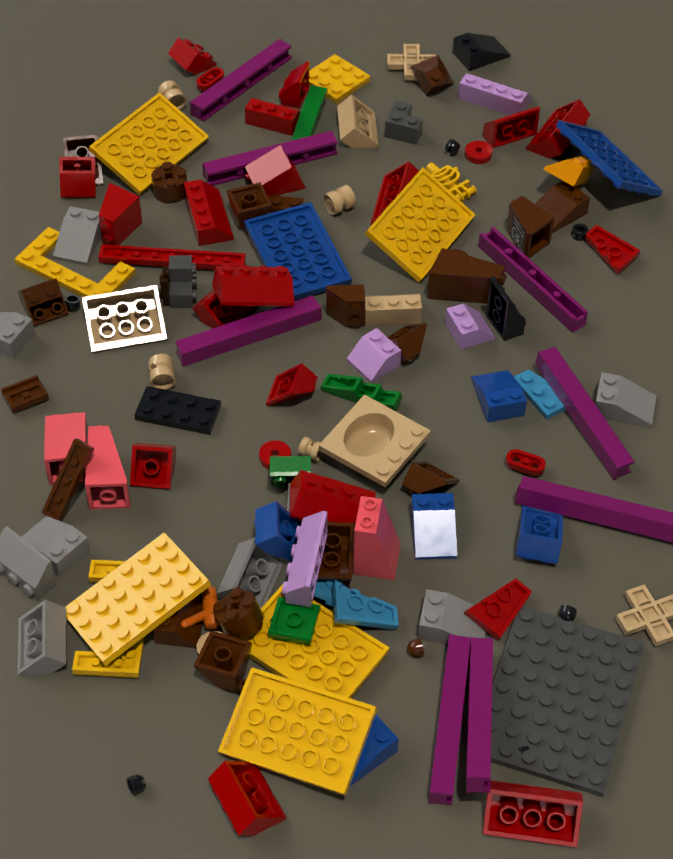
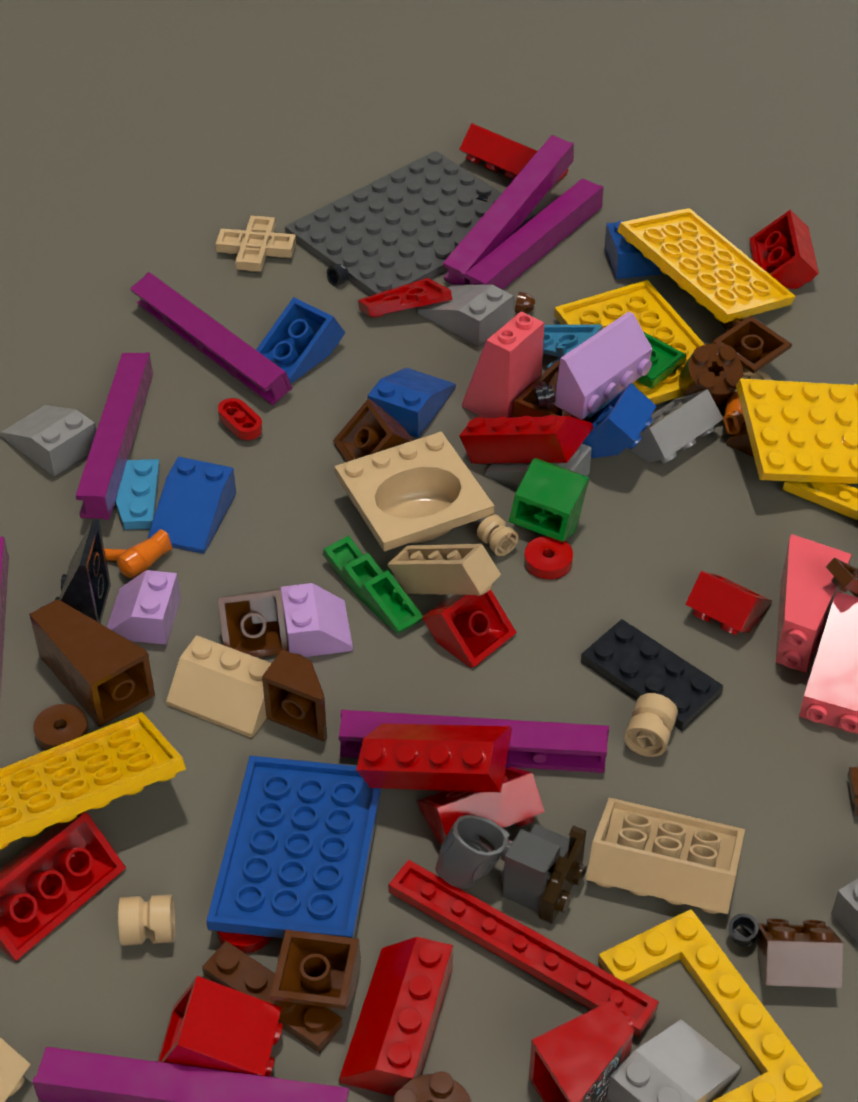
camera: 150 degrees left, 5 degrees down
(207, 262) = (464, 856): none -> dark grey helmet
(316, 383) = (444, 569): none -> tan brick
(335, 523) = (544, 395): none -> black plate
(499, 351) = (140, 556): none -> orange piece

